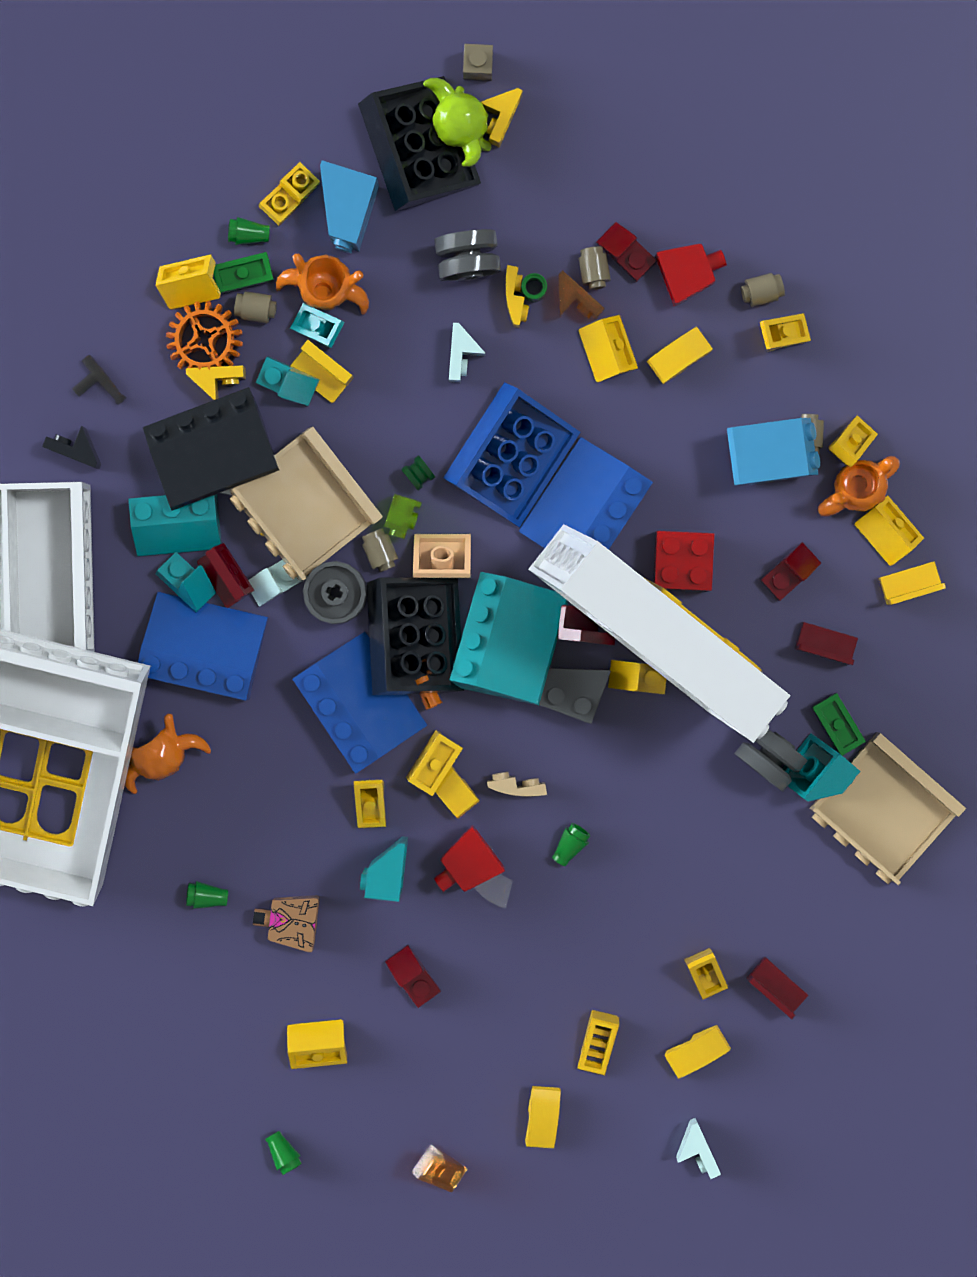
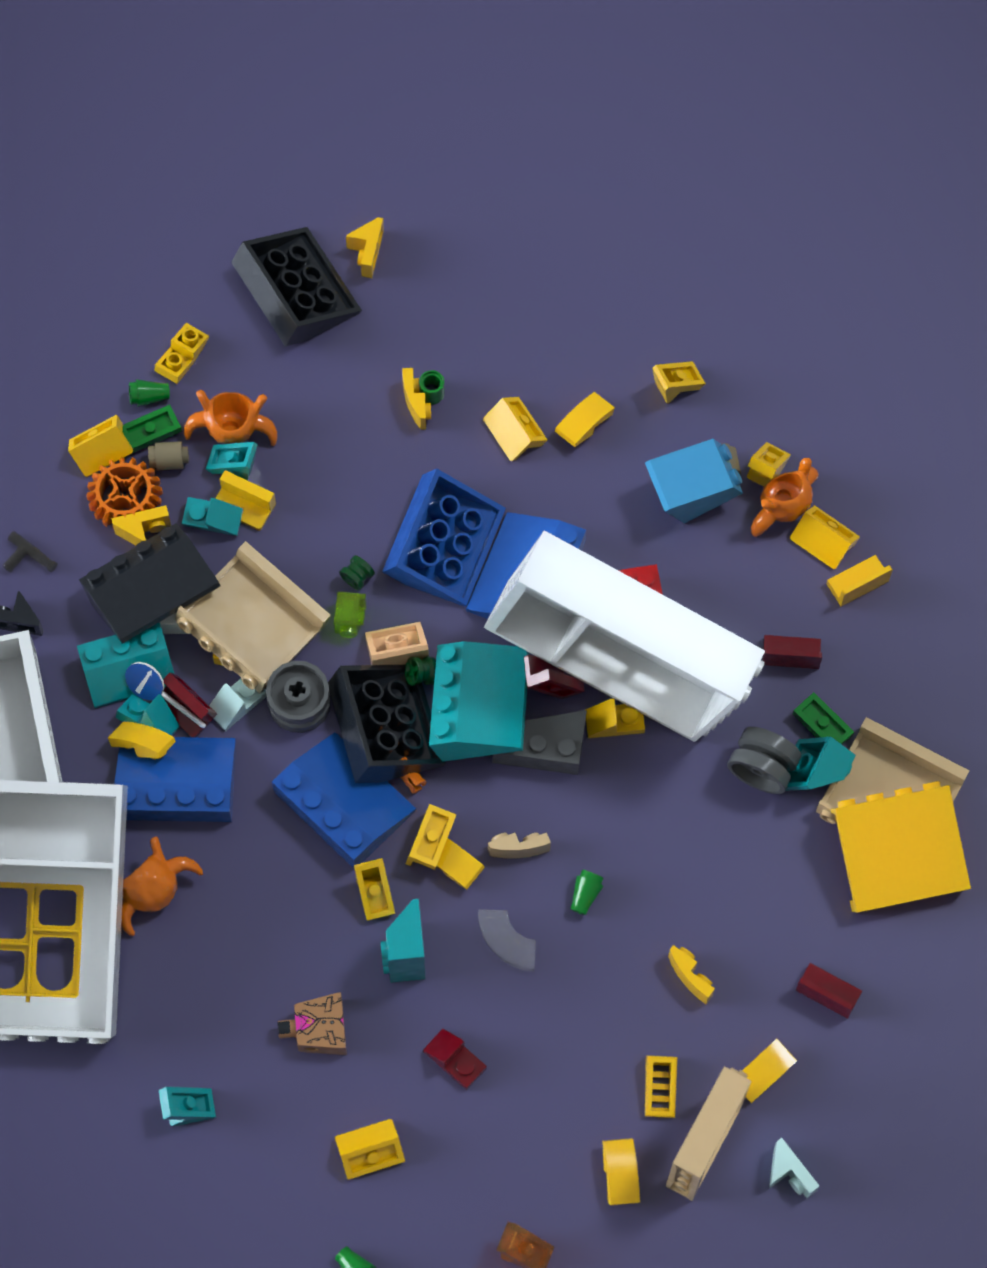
camera: 15 degrees left, 20 degrees down
(155, 970) = (186, 1105): none -> teal slope
(176, 606) = (145, 740): none -> yellow slope
(193, 552) = (148, 683): none -> blue piece
(204, 895) = (222, 1020): green cone -> none
(348, 204) = (240, 344): dark azure slope -> none
(379, 550) = (333, 649): dark tan brick -> none
(459, 120) = (329, 253): lime piece -> none
(459, 591) = (420, 670): none -> dark green wheel
(461, 345) = (376, 452): light aqua slope -> none
(467, 255) = (362, 366): dark grey wheel -> none
(468, 862) = (487, 925): red torso -> none
(478, 62) = (336, 205): dark tan brick -> none
(570, 292) = (471, 384): clear orange slope -> none
(594, 268) = (485, 359): dark tan brick -> none
(626, 251) = (511, 341): dark red slope -> none
(628, 1115) = (708, 1132): none -> tan window
(646, 934) = (684, 966): none -> yellow slope
(688, 270) = (574, 344): red torso -> none
(706, 973) = (753, 989): yellow slope -> none
(763, 289) = (649, 347): dark tan brick -> none
(791, 571) = (739, 593): dark red slope -> none
(880, 871) = (901, 847): none -> yellow panel

